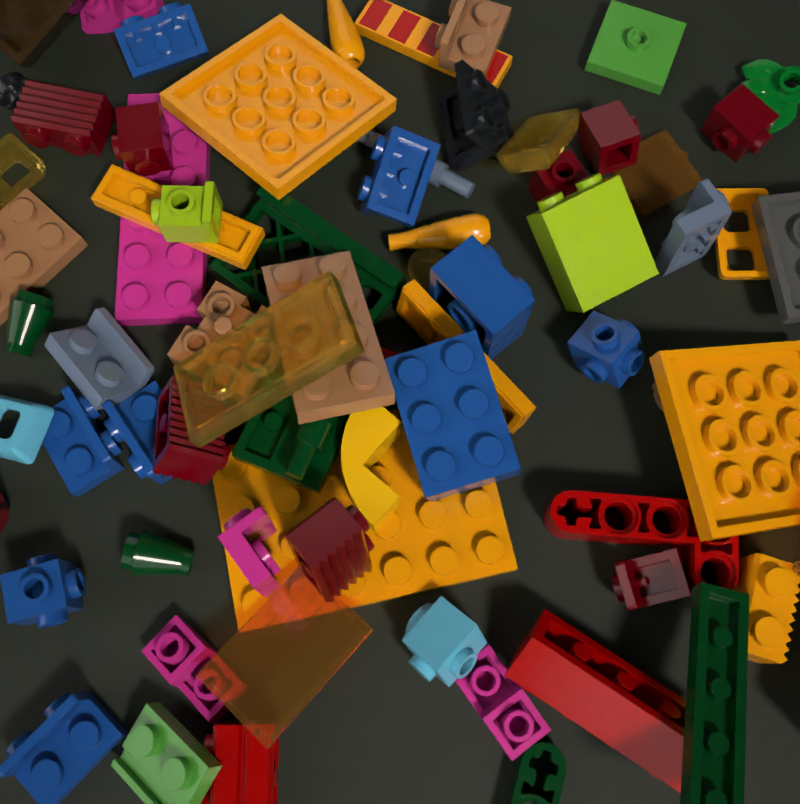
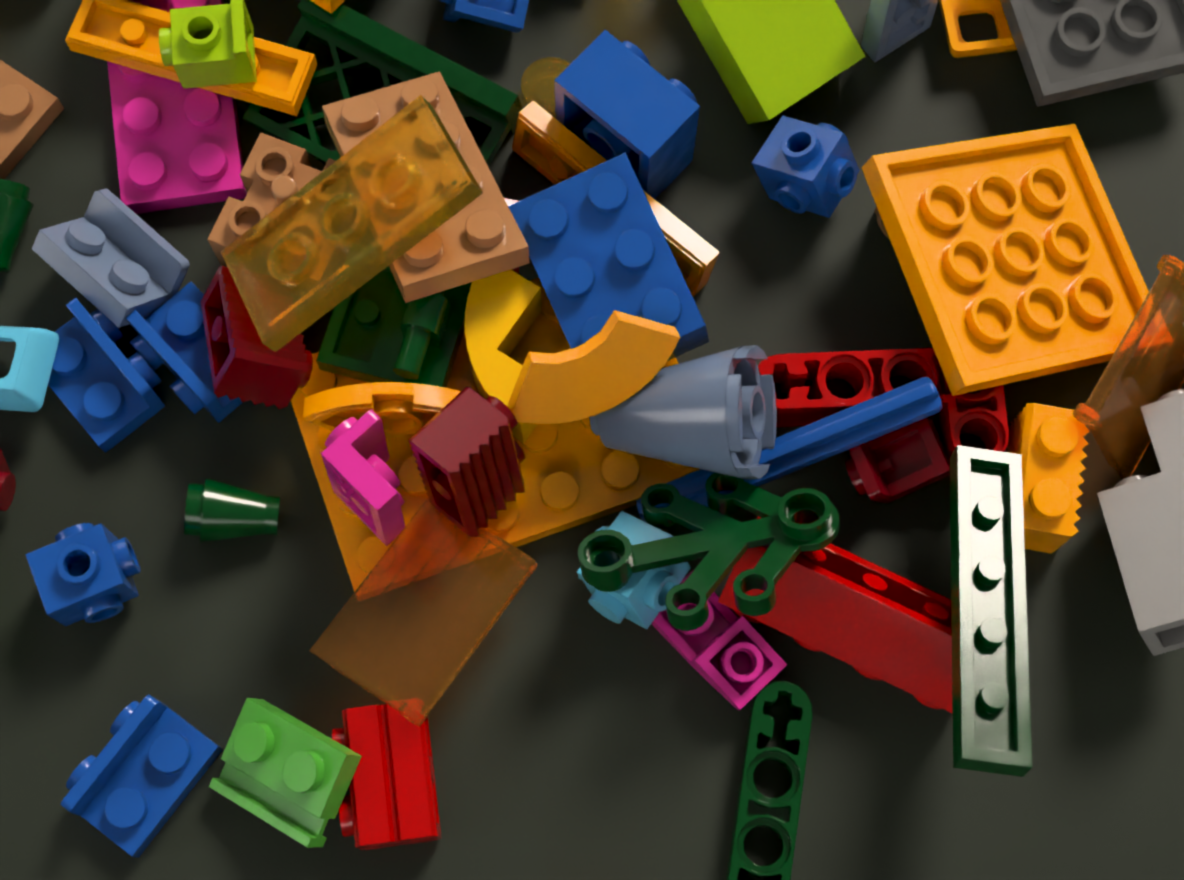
camera: 10 degrees left, 0 degrees up
(179, 656) = (281, 637): dark pink slope -> none
(274, 497) = (399, 405): none -> light orange tile
(431, 496) = (593, 375): none -> light orange tile
(443, 234) = (563, 37): light orange piece -> none
(504, 532) = (700, 415): none -> sand blue cone
(512, 636) = (791, 524): none -> dark green plant
(573, 565) = (829, 436): none -> blue axle

